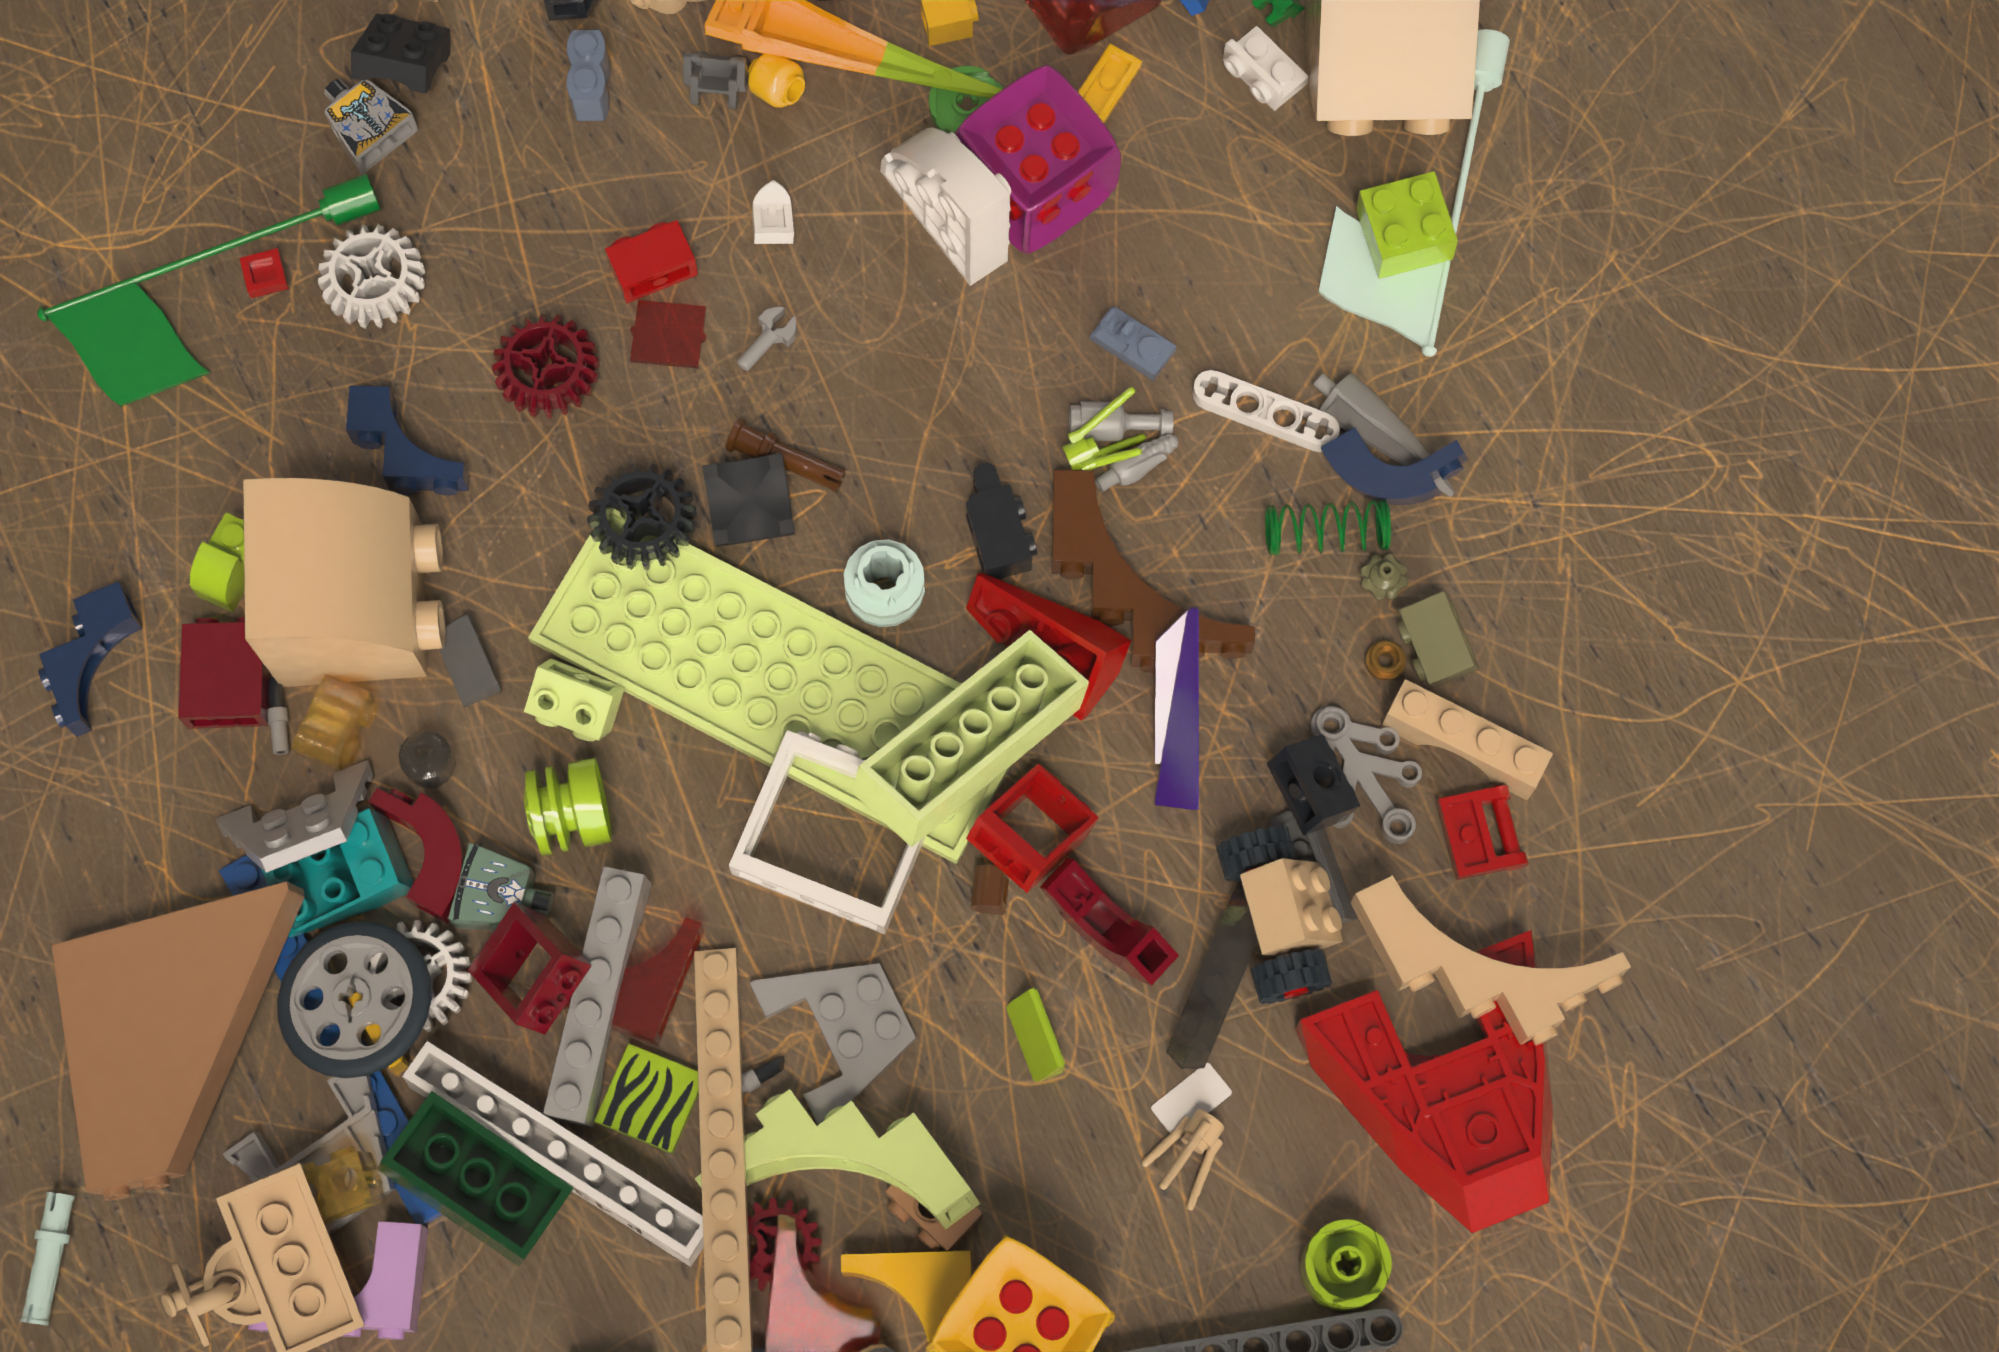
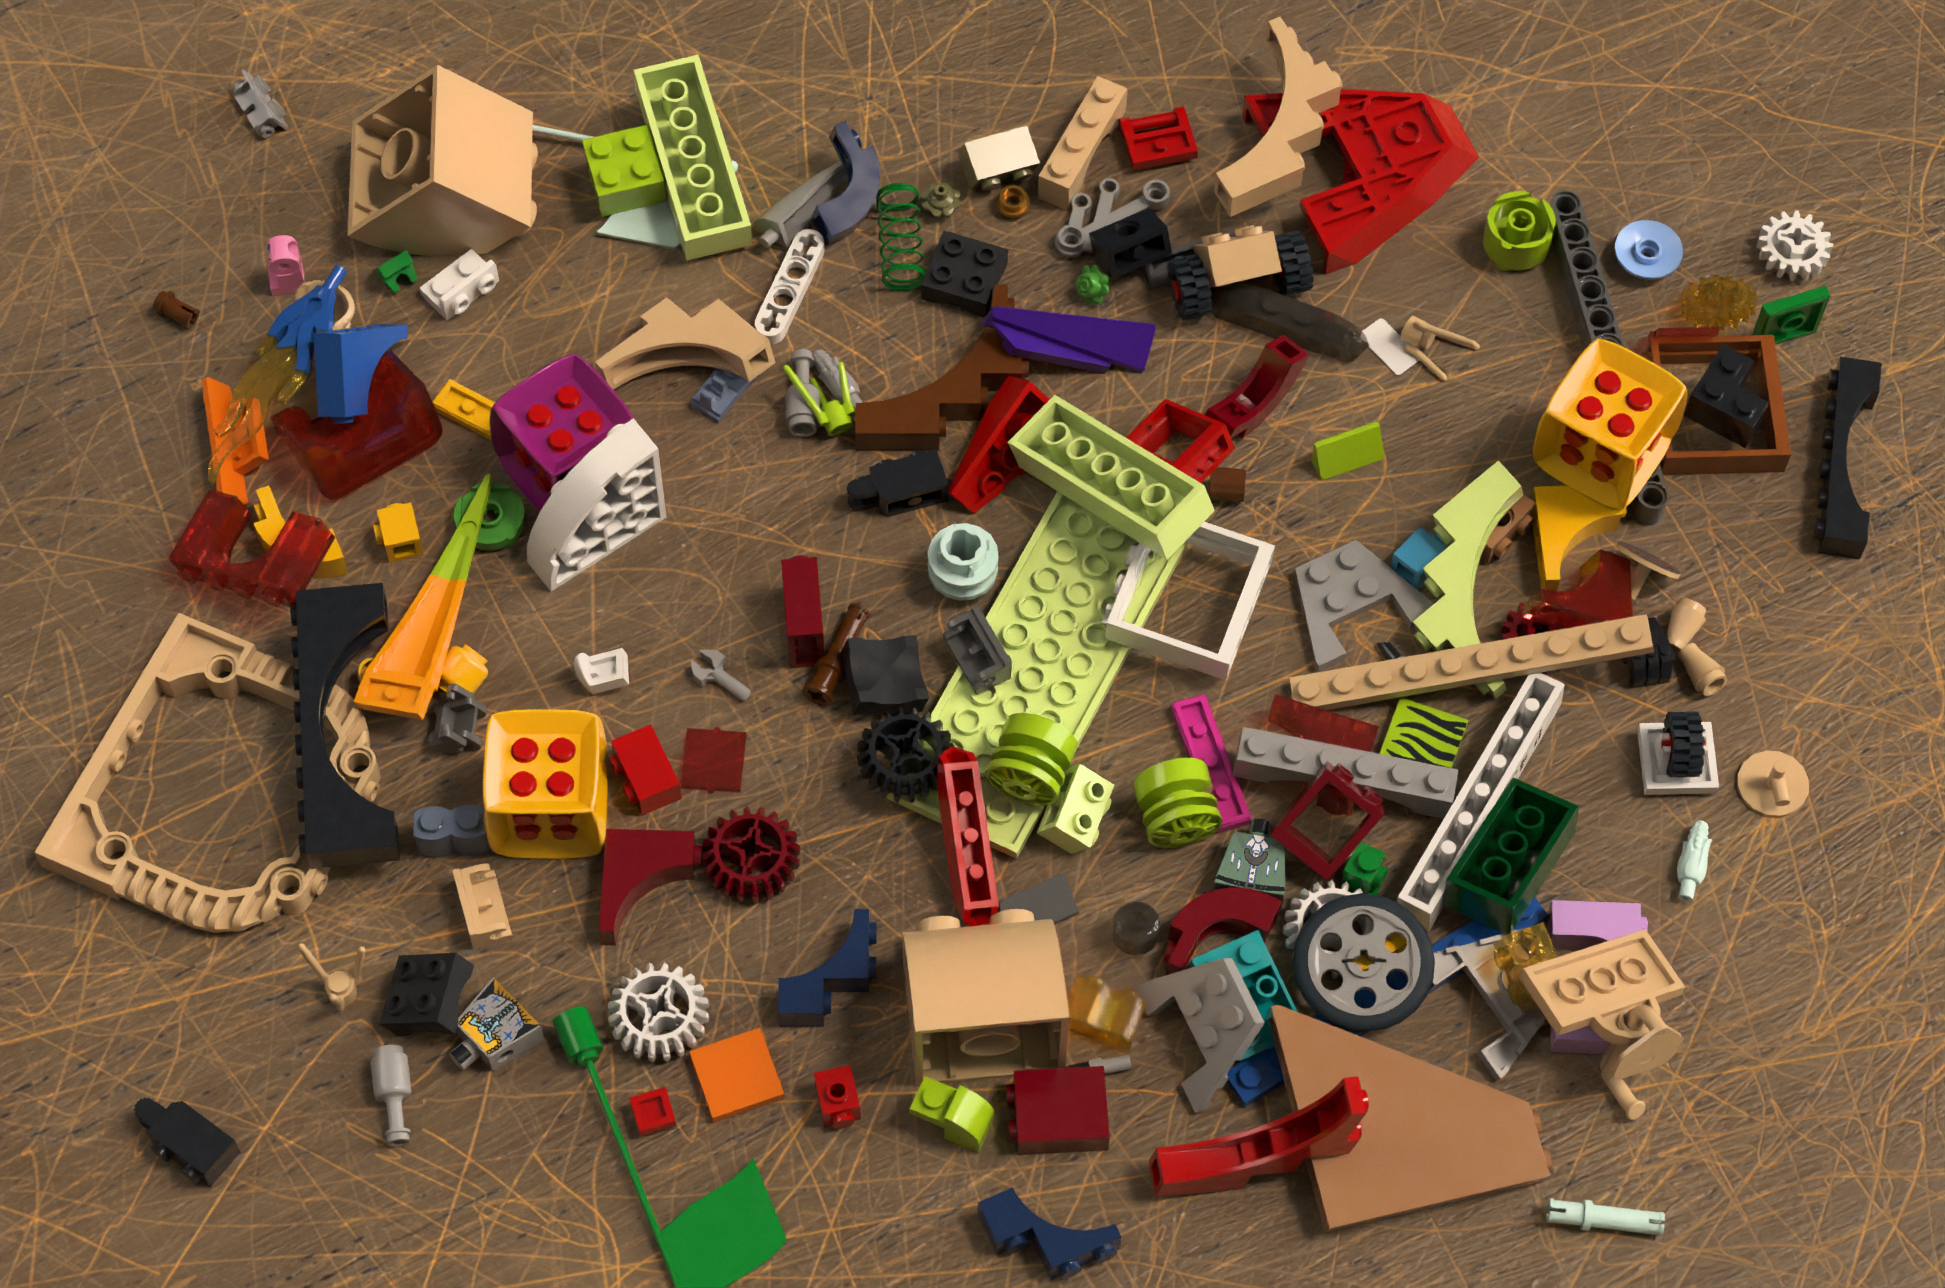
camera: 90 degrees left, 10 degrees down
(137, 887) = (1228, 1162): none -> red arch
(261, 450) = (837, 1097): none -> red brick
(301, 356) = (736, 1074): none -> orange tile
(312, 29) = (392, 1086): none -> light grey piece
(479, 1017) = (1365, 870): none -> green brick
(505, 107) = (482, 905): none -> tan hinge
(539, 248) = (638, 864): none -> dark red arch
(539, 576) = (966, 836): none -> red brick
(610, 639) = (1031, 759): none -> lime wheel
(615, 148) = (545, 784): none -> yellow piece
(639, 853) = (1205, 743): none -> dark pink tile
(771, 598) = (977, 650): none -> dark grey hinge
(827, 412) = (802, 611): none -> dark red window
(883, 1104) = (1416, 554): none -> dark azure brick
(1185, 286) = (672, 339): none -> tan arch
(1265, 744) = (1092, 284): none -> bright green plant
(1282, 600) = (964, 273): none -> black brick
(1424, 294) = (693, 157): none -> yellowish green brick

